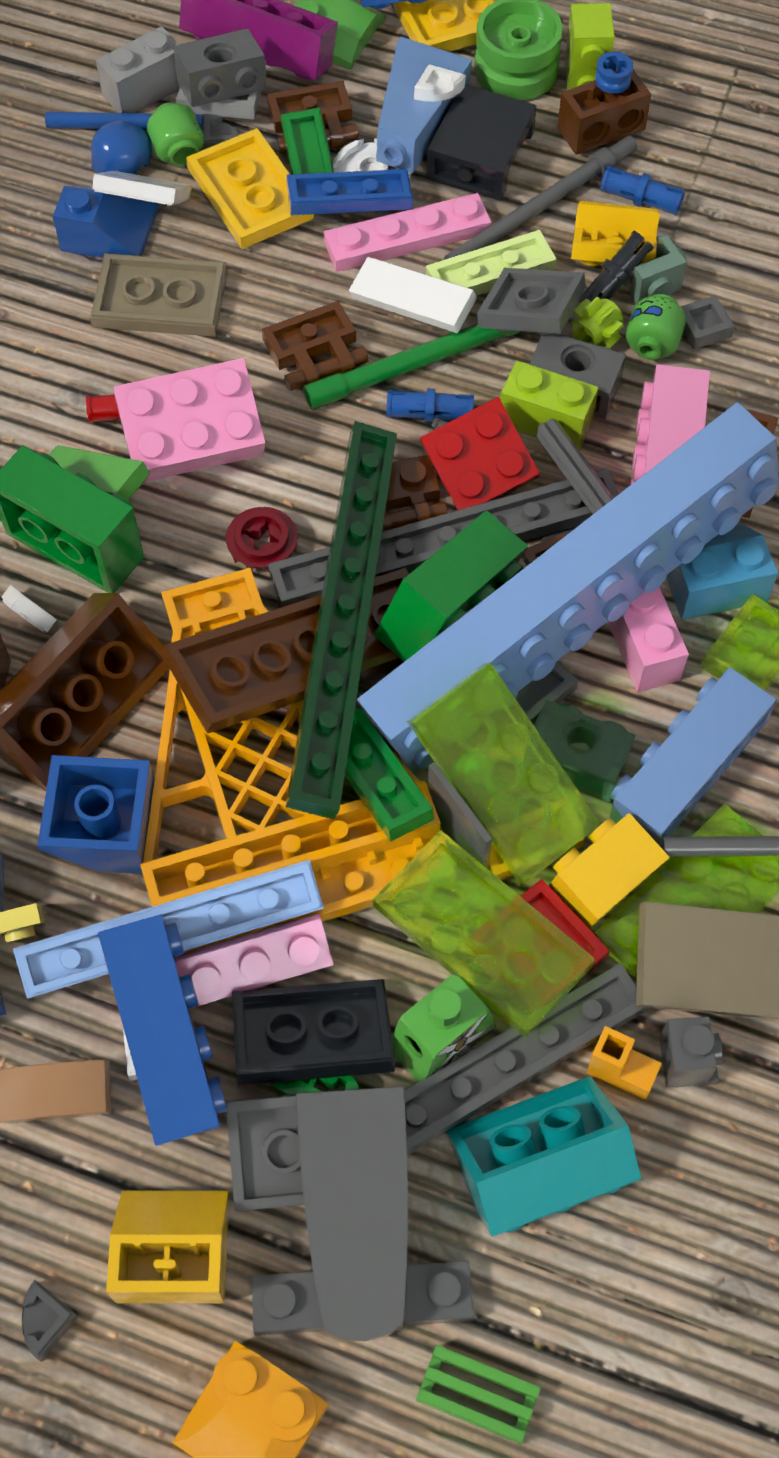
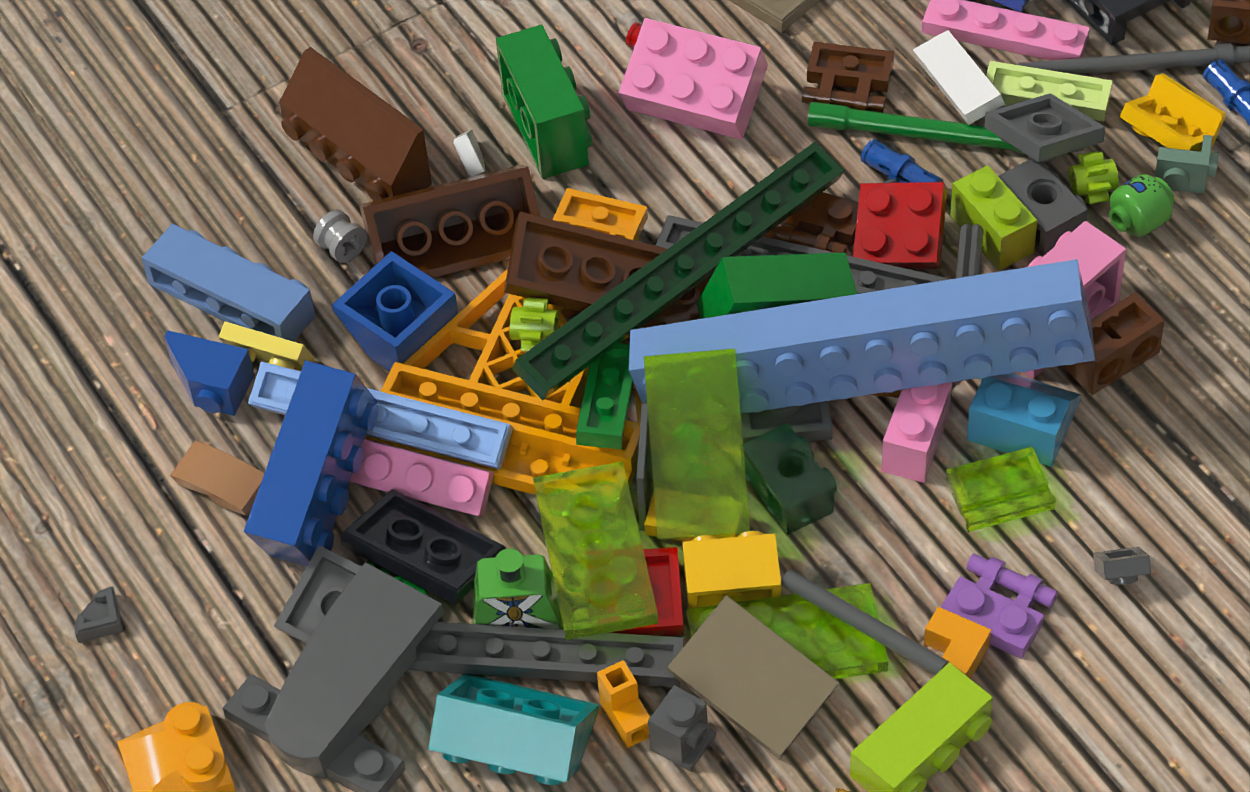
camera: 40 degrees right, 10 degrees down
(106, 471) = (593, 79): bright green tile -> none
(169, 1247) = (209, 619): yellow slope -> none
(252, 525) = (687, 184): dark red gear -> none
(255, 747) = (533, 322): none -> lime gear
(619, 268) = (1146, 143): black pin -> none
(693, 755) = (874, 534): medium blue brick -> none
(706, 322) = (1192, 225): dark grey plate -> none

